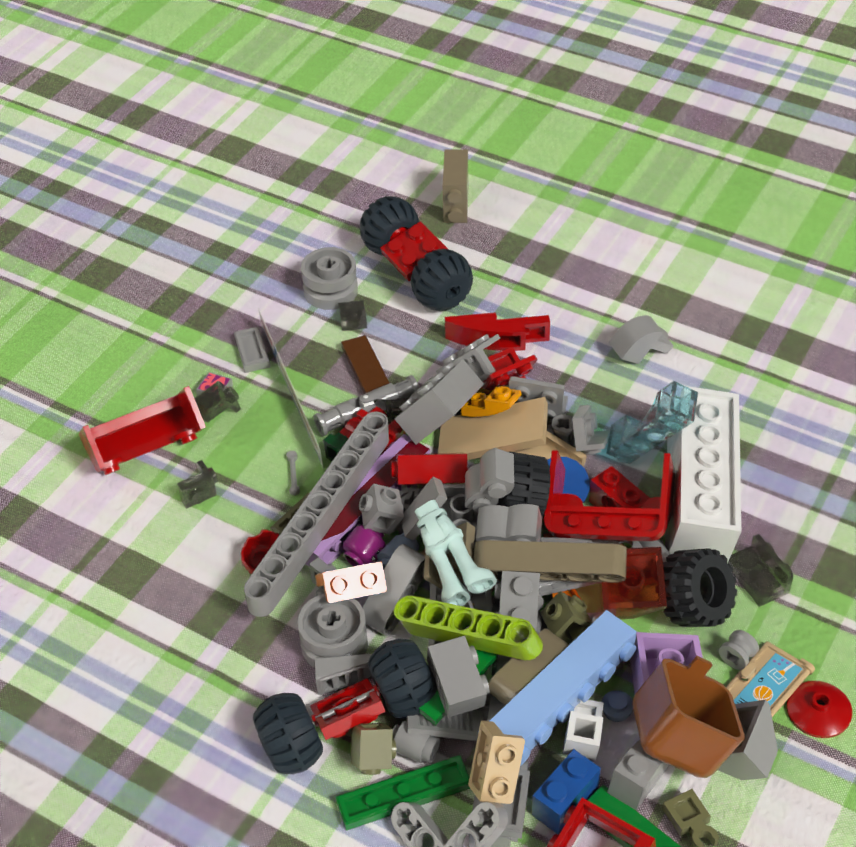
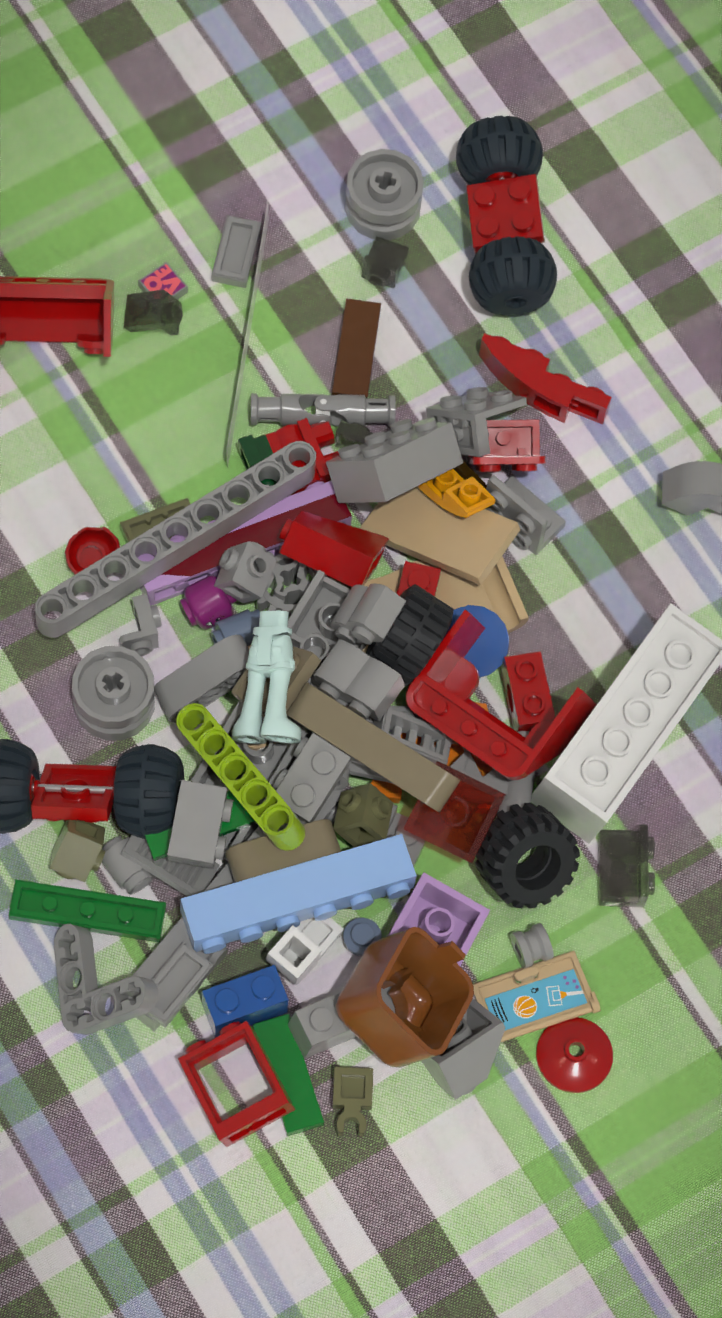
camera: 20 degrees right, 20 degrees up
(199, 487) = (70, 426): clear smoke bracket -> none
(292, 457) = (200, 434): light grey hinge -> none
(340, 672) = (94, 742): light grey slope -> none
(352, 582) = (159, 649): bracket -> none
(432, 491) = (292, 596): light grey tile -> none
(455, 186) = (627, 127): dark tan brick -> none
(495, 764) = (174, 945): tan bracket -> none
(563, 428) = (533, 566): light grey bush -> none
(585, 437) = (546, 590): light grey bracket -> none
(669, 414) = (620, 634): clear light blue arch -> none

